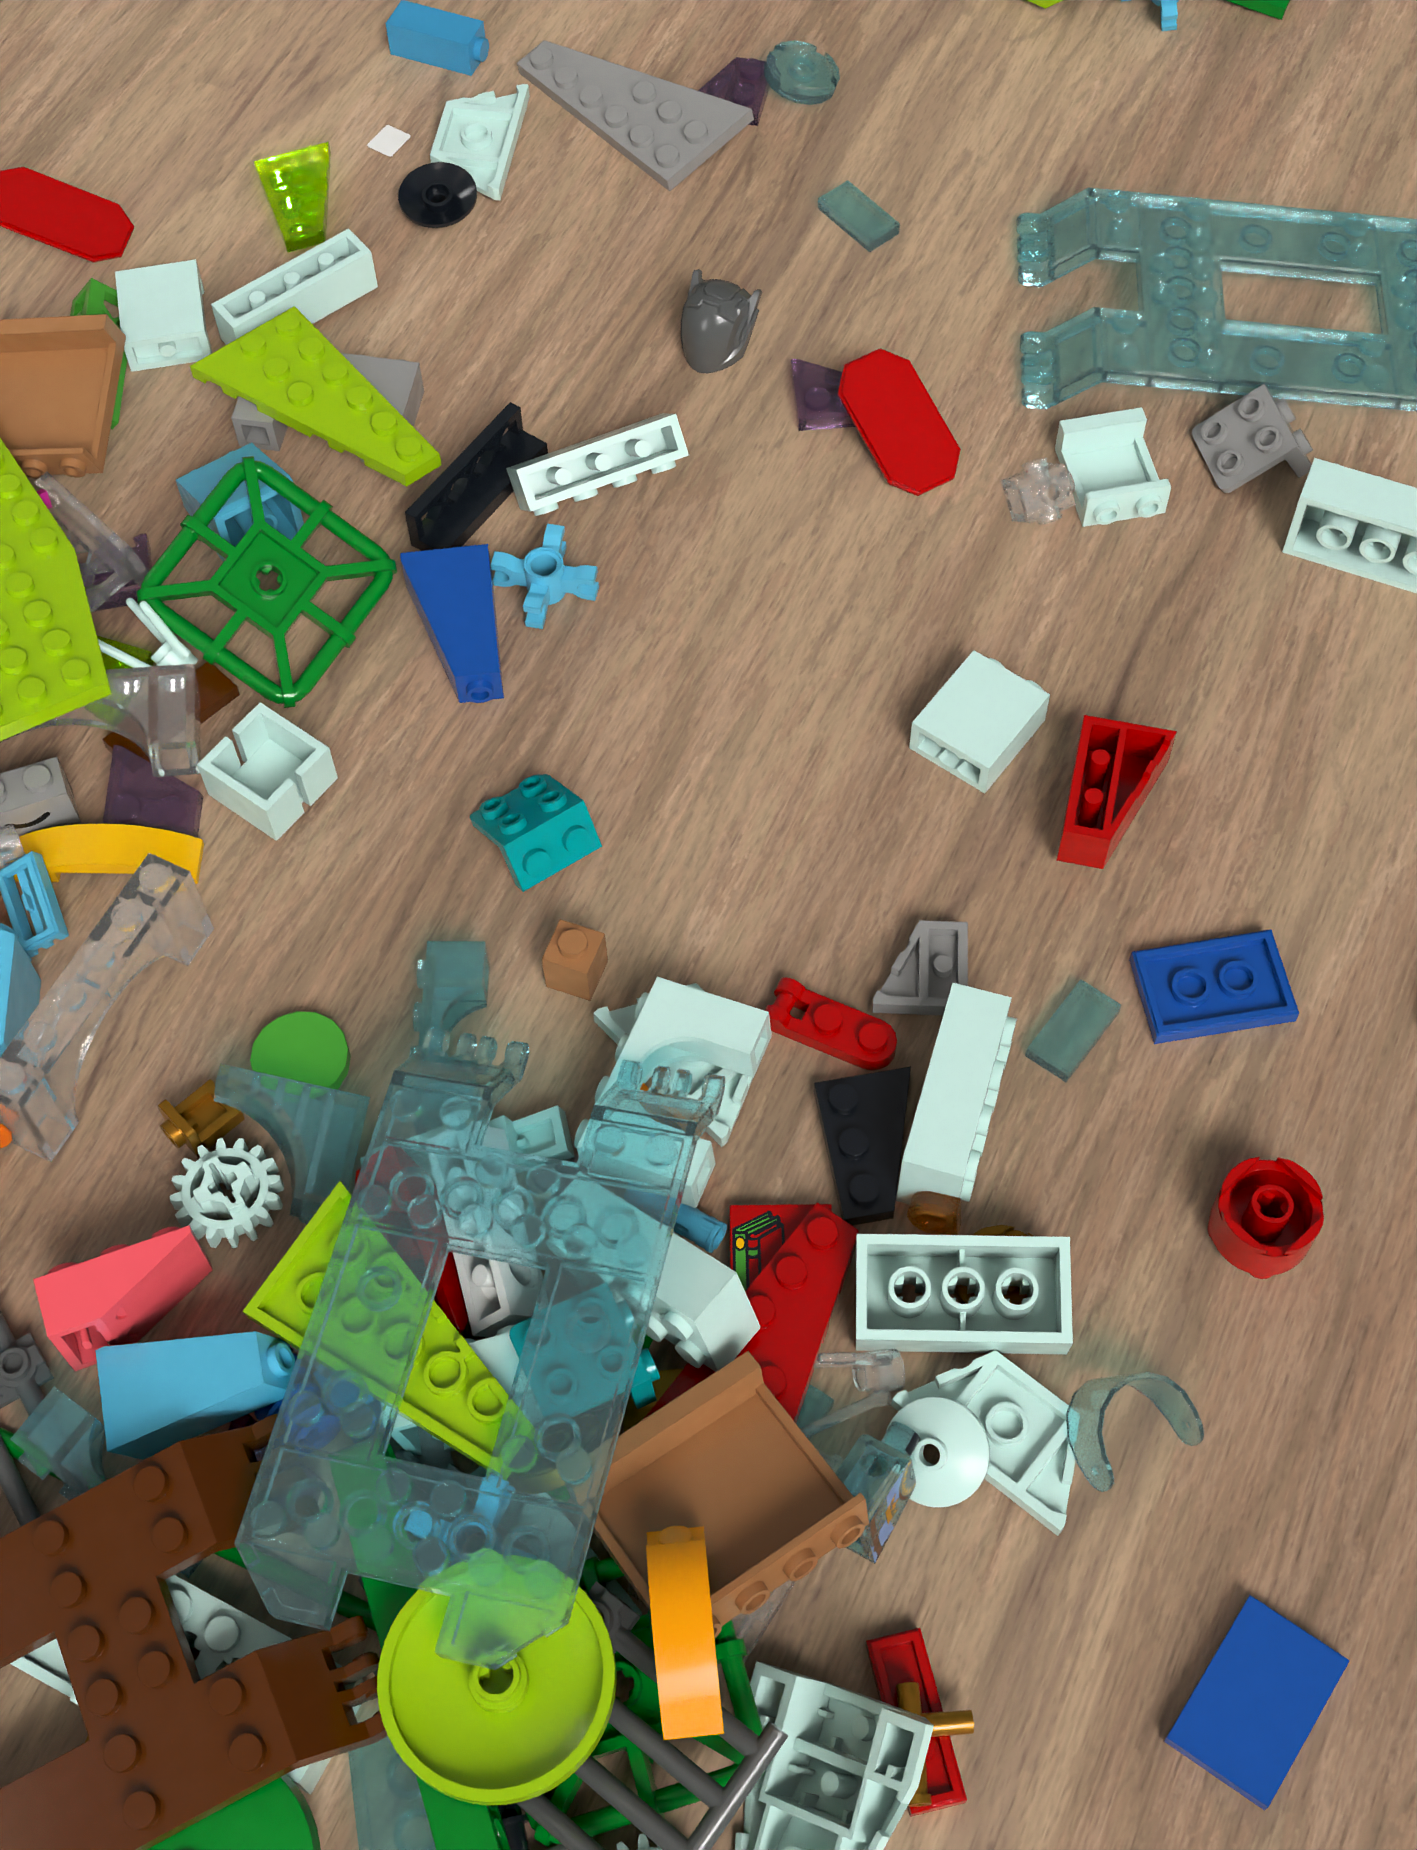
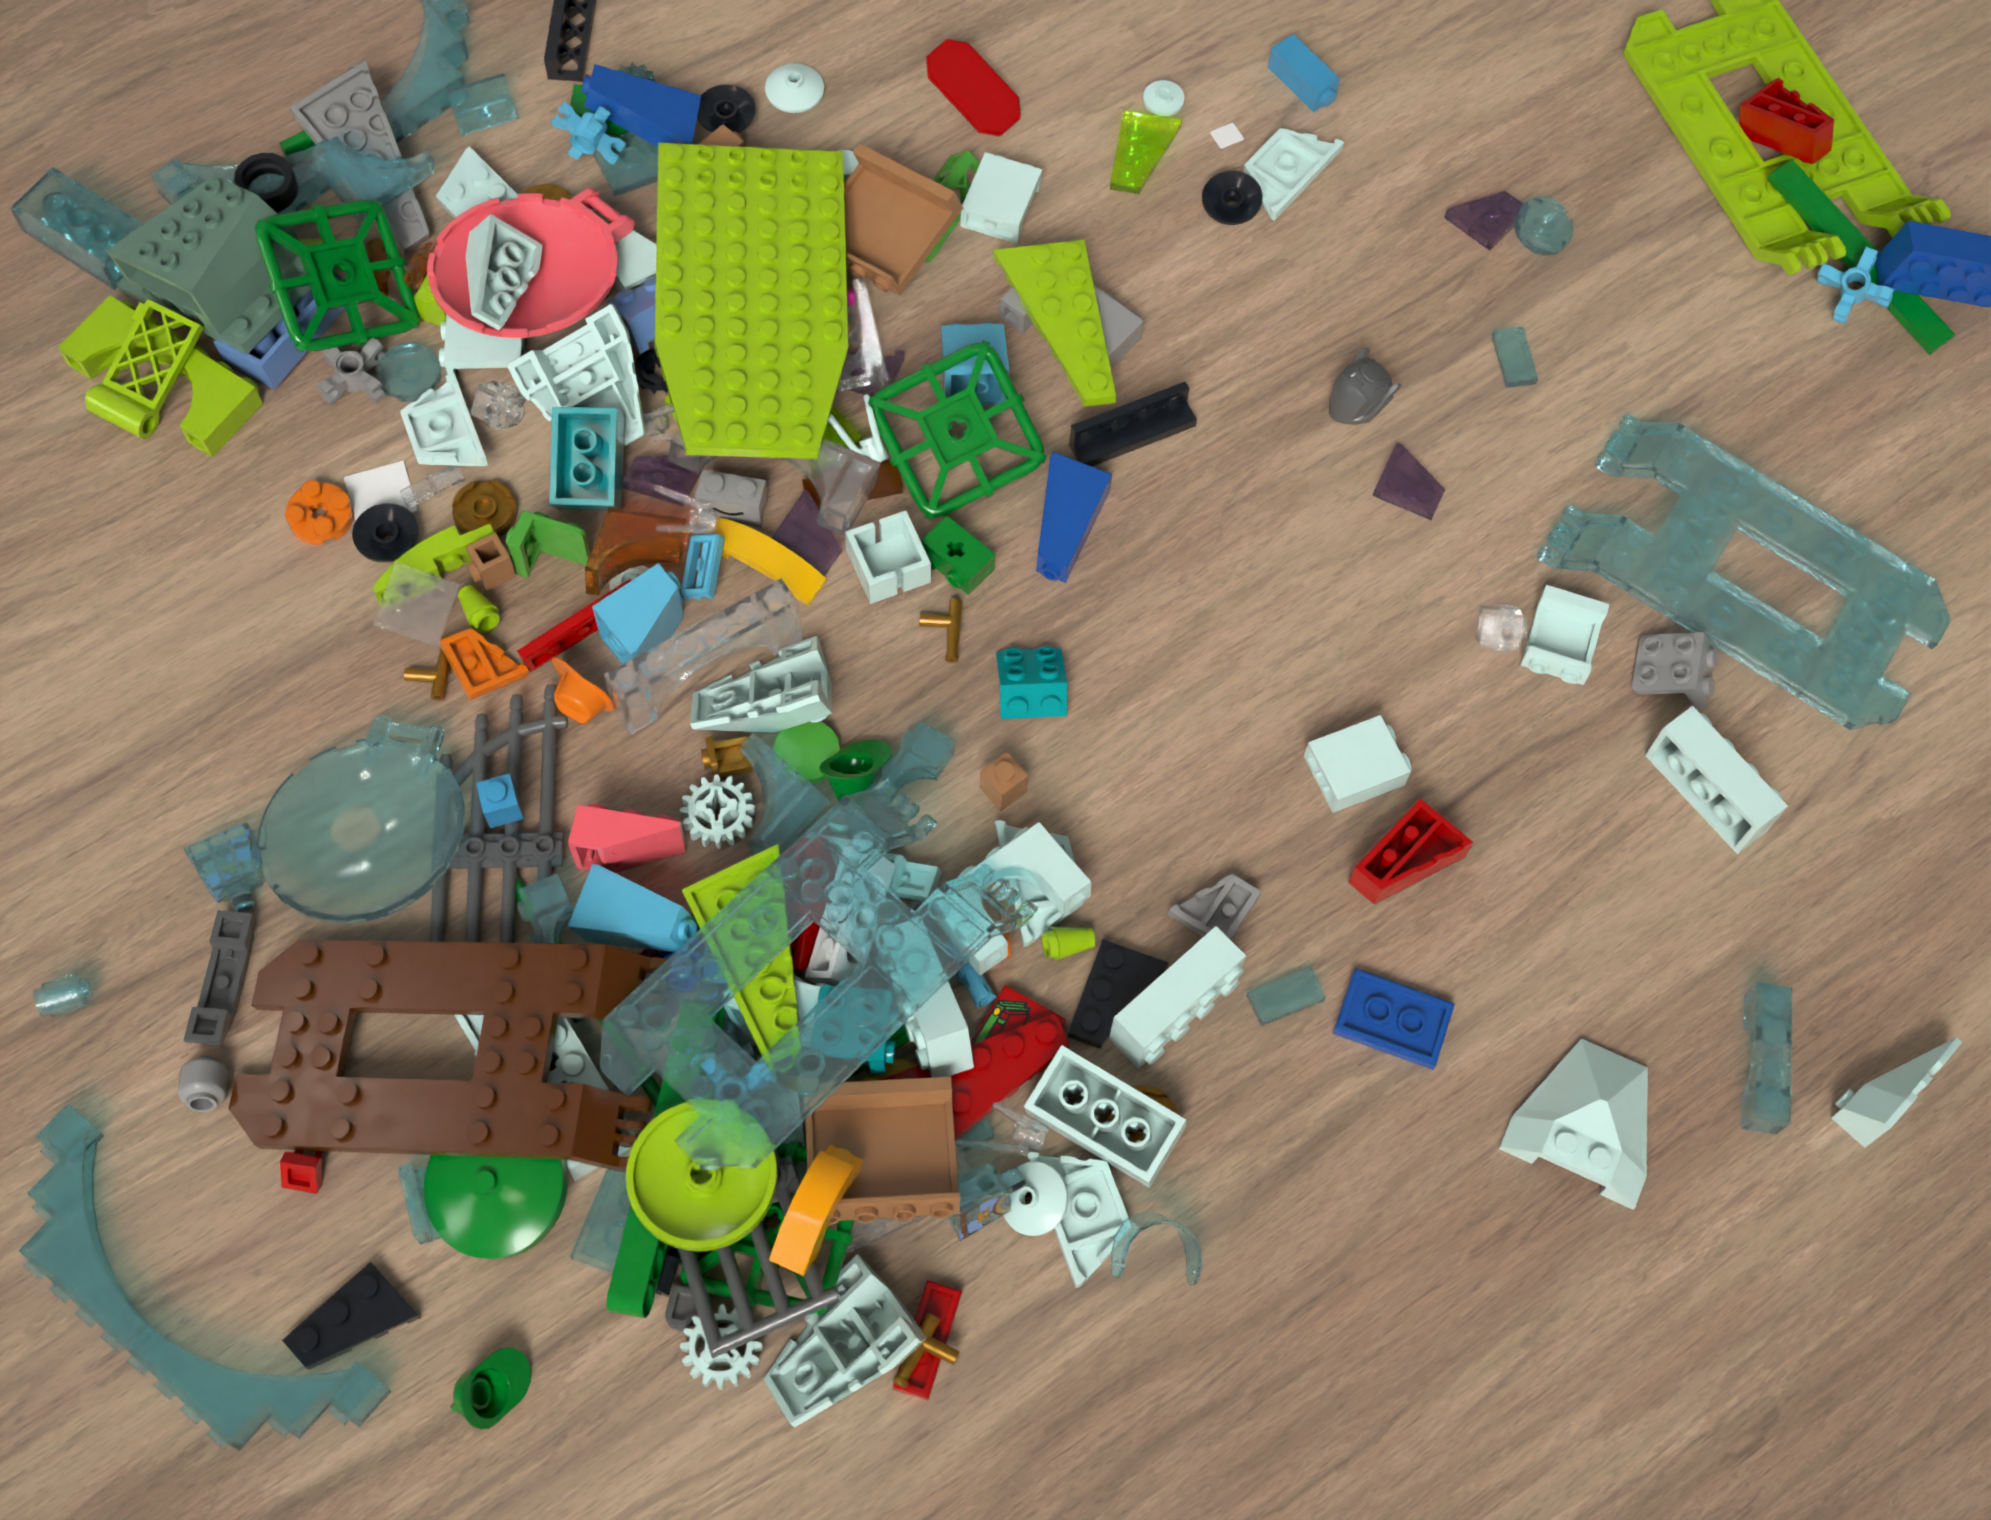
camera: 25 degrees right, 5 degrees up
(212, 1015) = (770, 696): none -> light aqua wedge
(291, 131) = (1163, 98): none -> light aqua piece
(312, 282) = (1100, 225): light aqua brick -> none
(356, 727) = (958, 555): none -> green brick
(377, 1041) = (855, 766): none -> green piece
(390, 810) = (951, 622): none -> pearl gold piece
(545, 576) = (1138, 525): medium azure pin -> none
(598, 462) = (1219, 452): light aqua brick -> none
(645, 118) = (1411, 207): light grey wing -> none
(771, 1110) = (1066, 941): none -> lime cone
(832, 1027) = (1136, 910): red plate -> none
(899, 422) = (1439, 527): red shield -> none
(935, 1213) = (1124, 1061): clear orange tile -> none
(1257, 1702) = (1129, 1446): blue tile -> none
(1259, 1242) = (1333, 1160): red brick -> none

